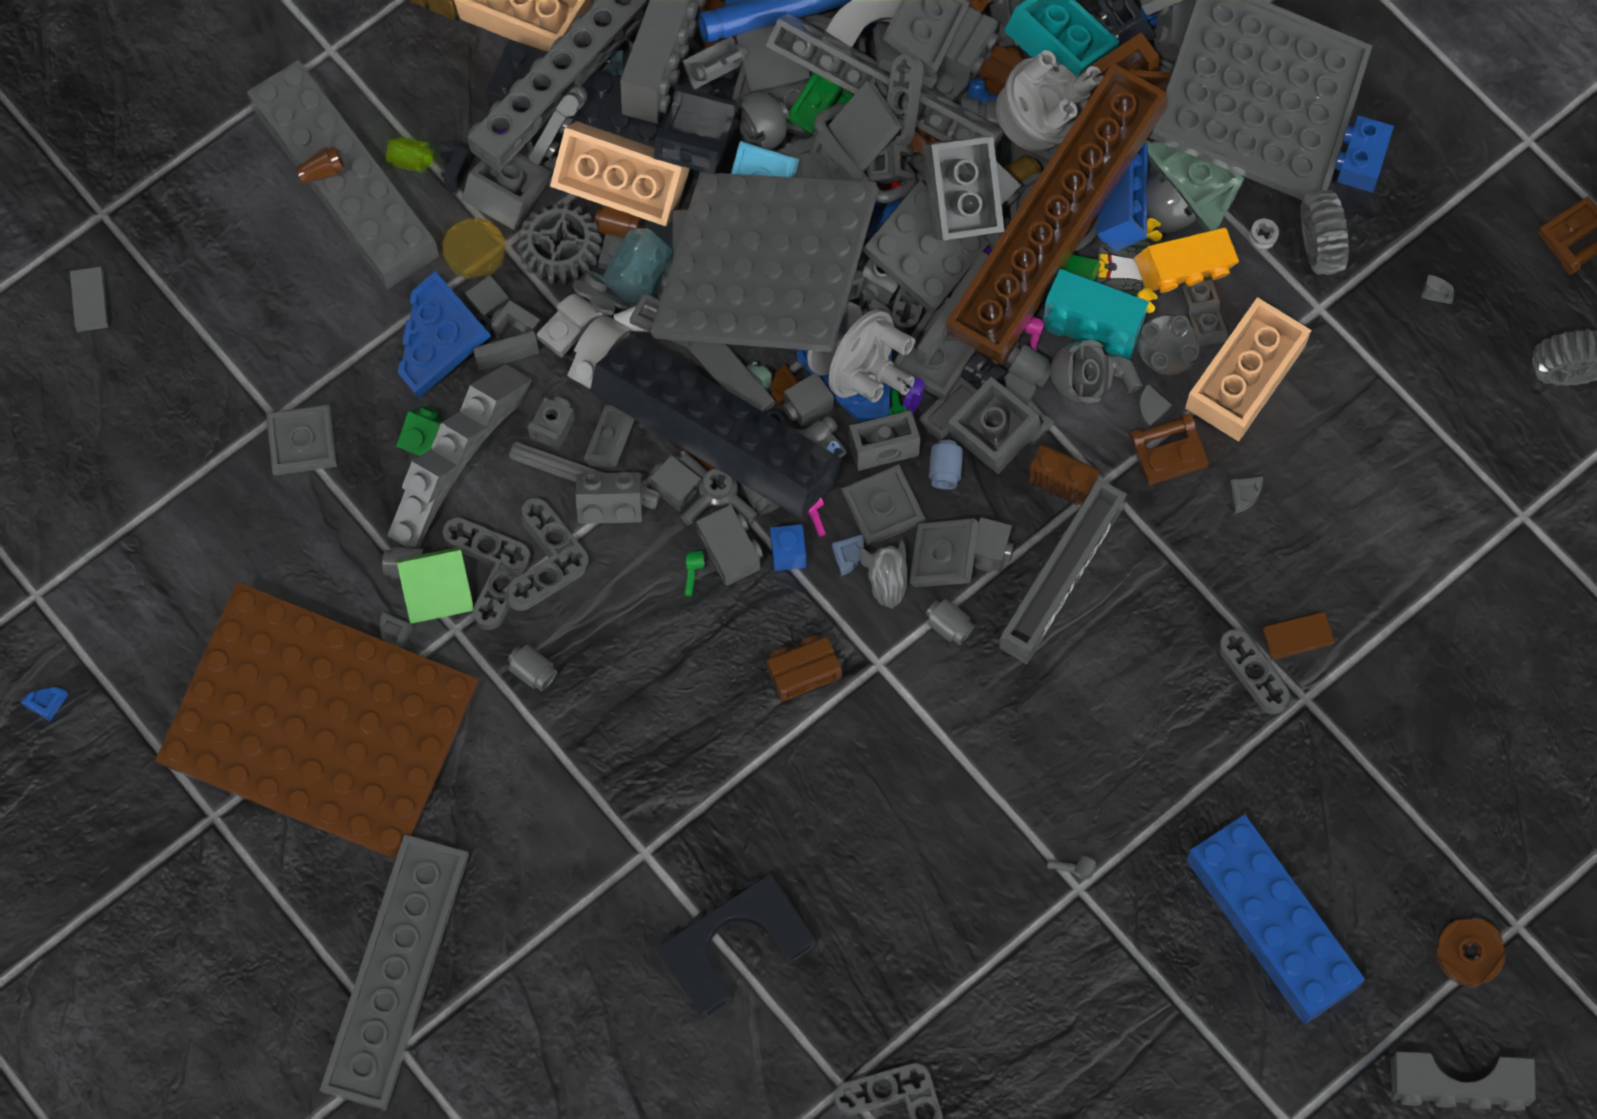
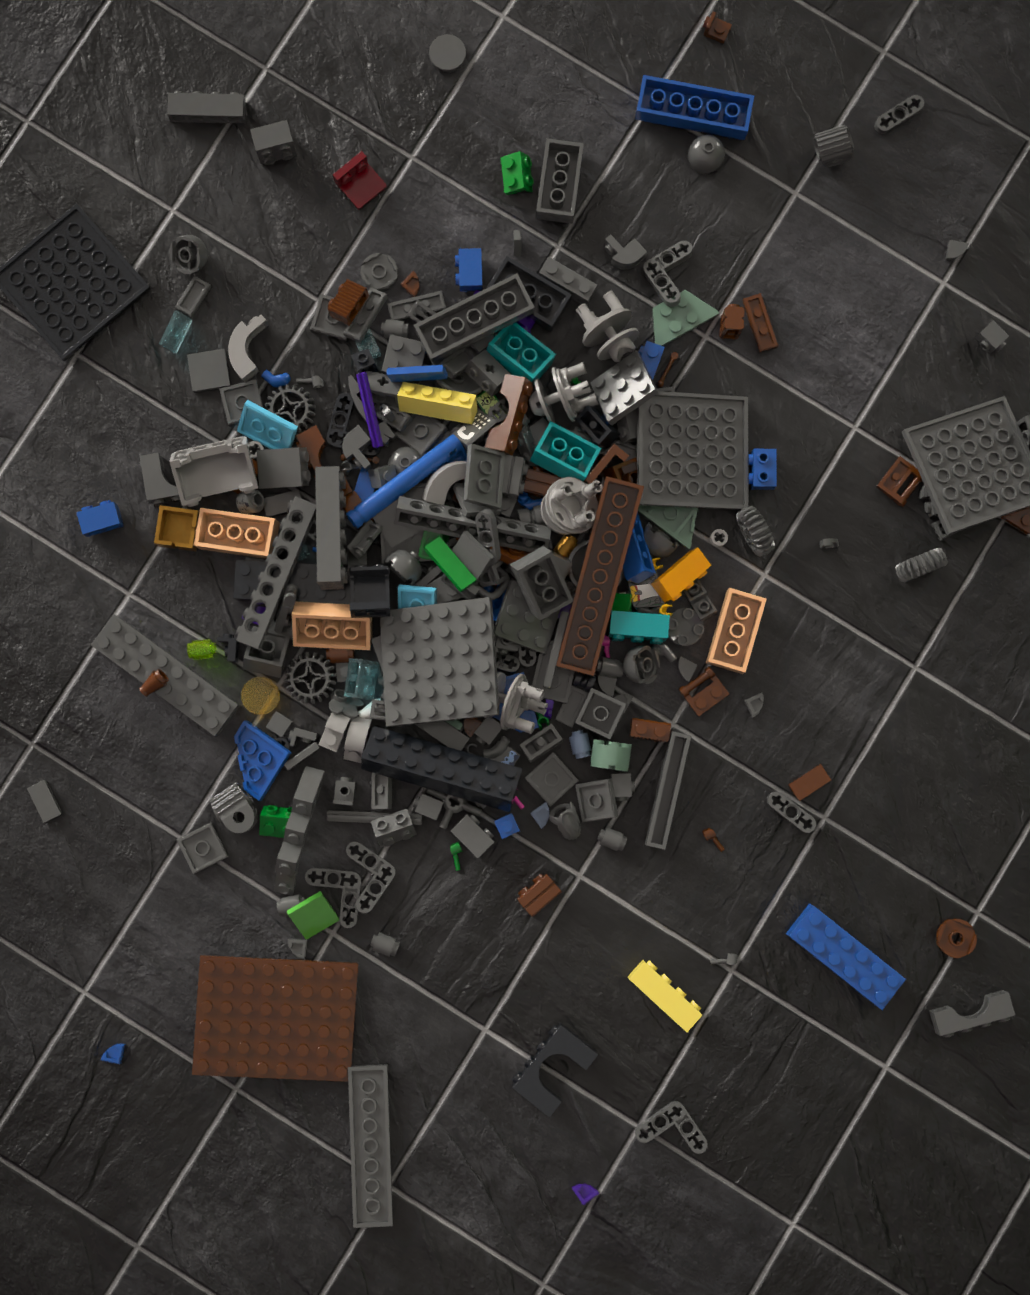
camera: 25 degrees left, 15 degrees up
(372, 385) = (231, 802): none -> dark grey piece
(831, 125) = (450, 564): none -> green tile
(956, 887) = (664, 995): none -> light yellow brick
(988, 489) = (611, 755): none -> sand green brick
(1111, 664) = (710, 834): none -> reddish brown hand

